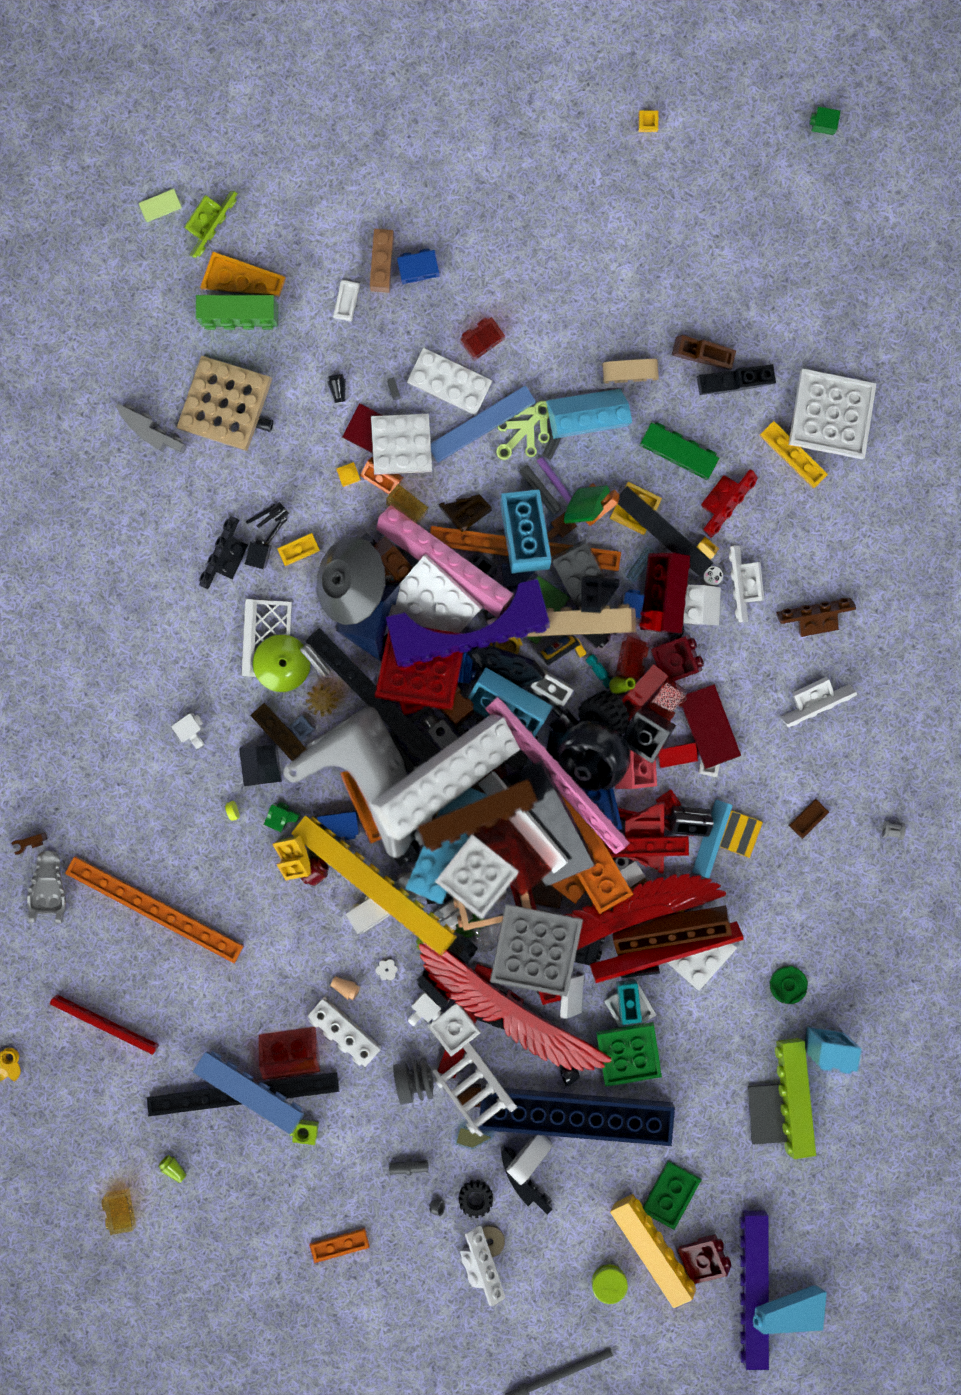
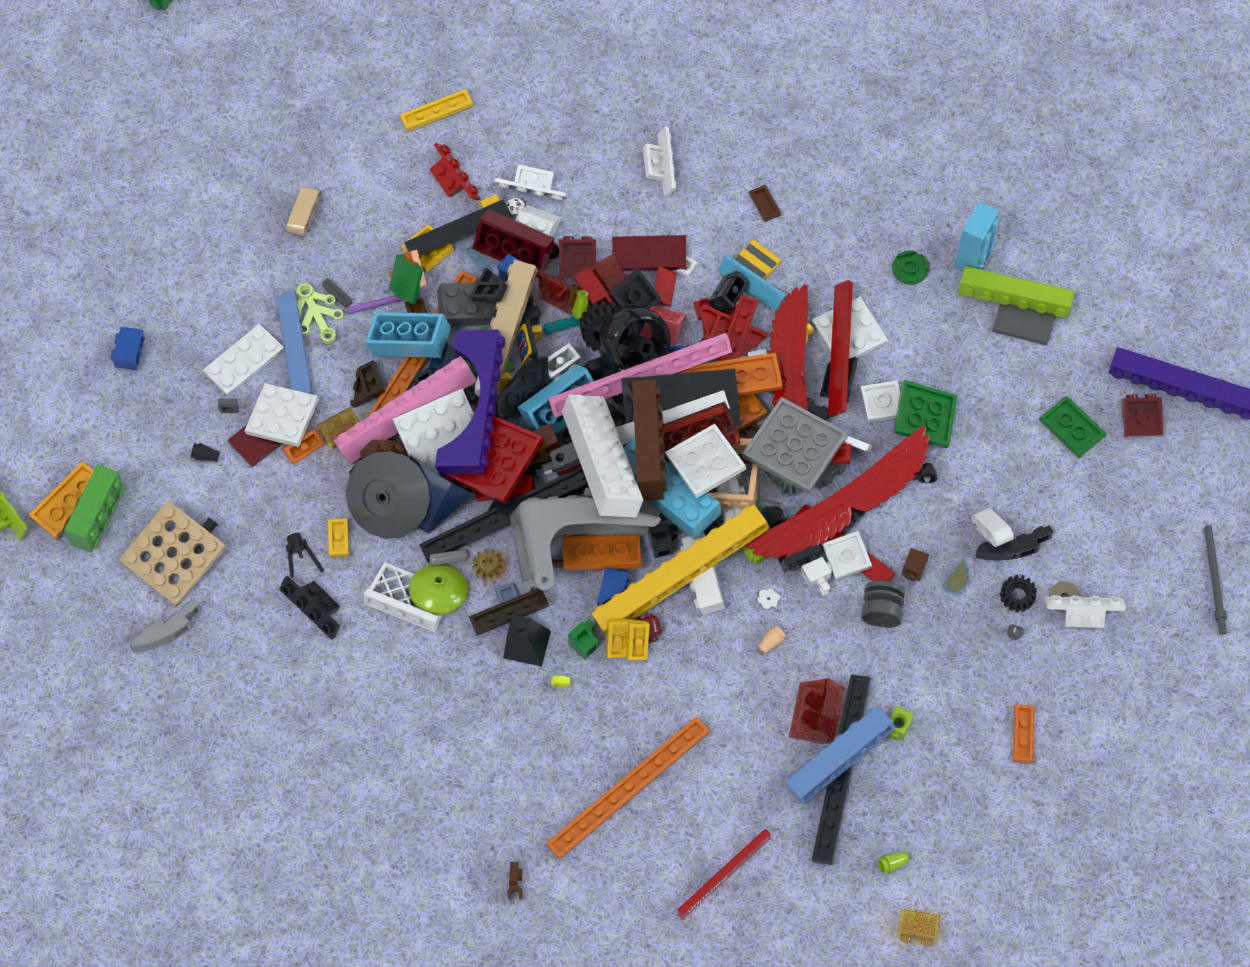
camera: 70 degrees left, 25 degrees down
(47, 891) = (569, 880): light grey animal -> none
(188, 728) = (465, 693): white brick -> none
(258, 554) = (326, 572): black brick -> none
(344, 1032) = (813, 654): white brick -> none
(346, 300) = (128, 420): white tile -> none
(348, 474) = (288, 473): yellow plate -> none
(381, 260) = (119, 378): medium nougat arch -> none
(408, 1167) = (967, 643): dark grey pin -> none
(482, 338) = (218, 318): clear red brick -> none
(492, 1087) = (902, 532): white fence -> none
(536, 484) = (367, 320): dark grey axle -> none
(583, 1117) = (967, 476): dark blue brick -> none
(588, 413) = (326, 254): medium azure slope -> none
(609, 1284) = (1139, 505): lime head -> none
(629, 1002) = (874, 392): teal brick -> none
(648, 121) = (93, 126): yellow plate -> none
(652, 620) = (533, 255): red tile -> none
(653, 1250) = (1118, 455): yellow brick -> none
(674, 930) = (822, 335): reddish brown brick -> none
(679, 451) = (392, 195): green brick -> none
(703, 352) = (314, 149): reddish brown slope -> none
(736, 380) = (351, 131): black slope -> none
(792, 1313) = (1214, 354): medium azure slope -> none
(817, 617) = (588, 138): reddish brown bracket -> none
(832, 414) = (414, 68): white plate -> none
(893, 830) = (801, 139): light grey bush -> none

